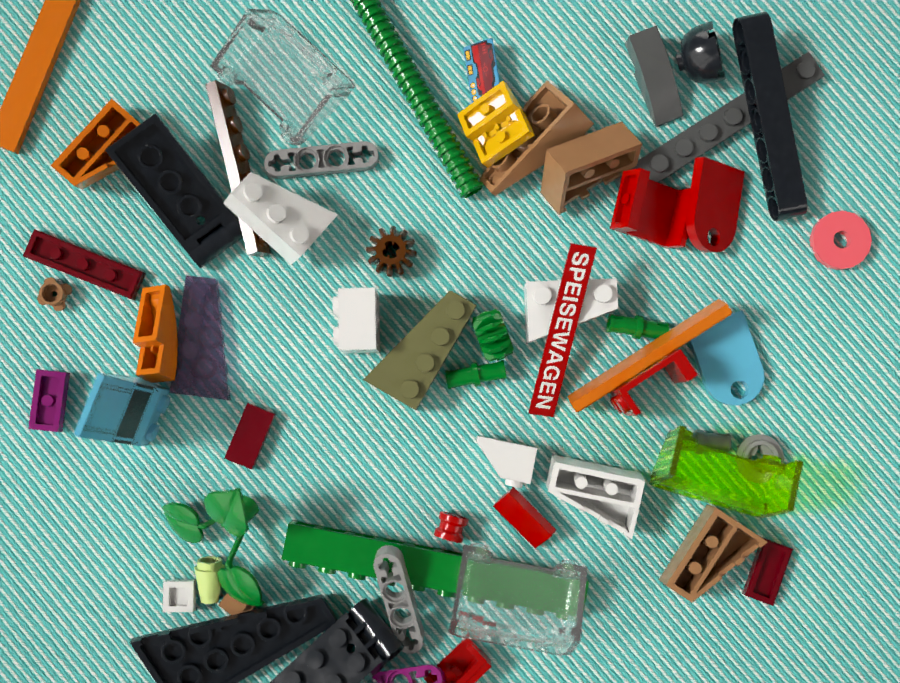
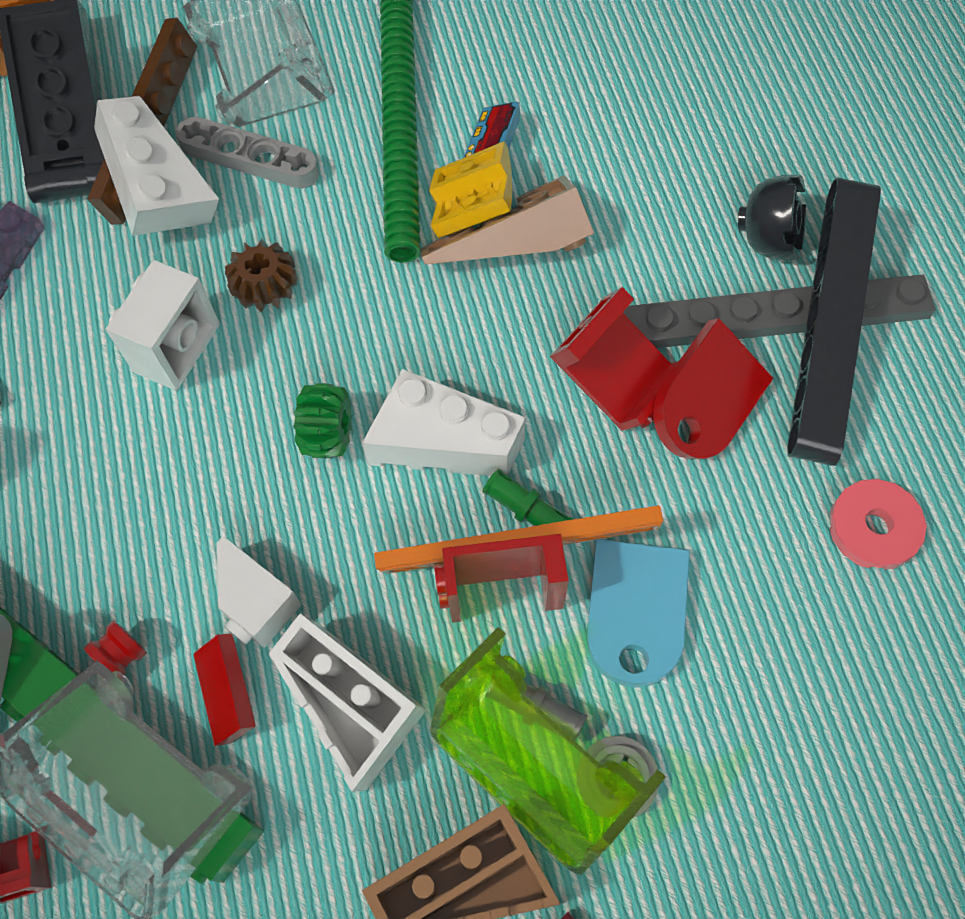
camera: 30 degrees right, 20 degrees down
(419, 356) = (221, 404): olive wedge -> none
(475, 374) = (276, 466): green pin -> none
(562, 329) = (413, 450): red sticker -> none
(586, 162) = (558, 272): medium nougat wedge -> none
(654, 75) = (702, 220): dark grey slope -> none

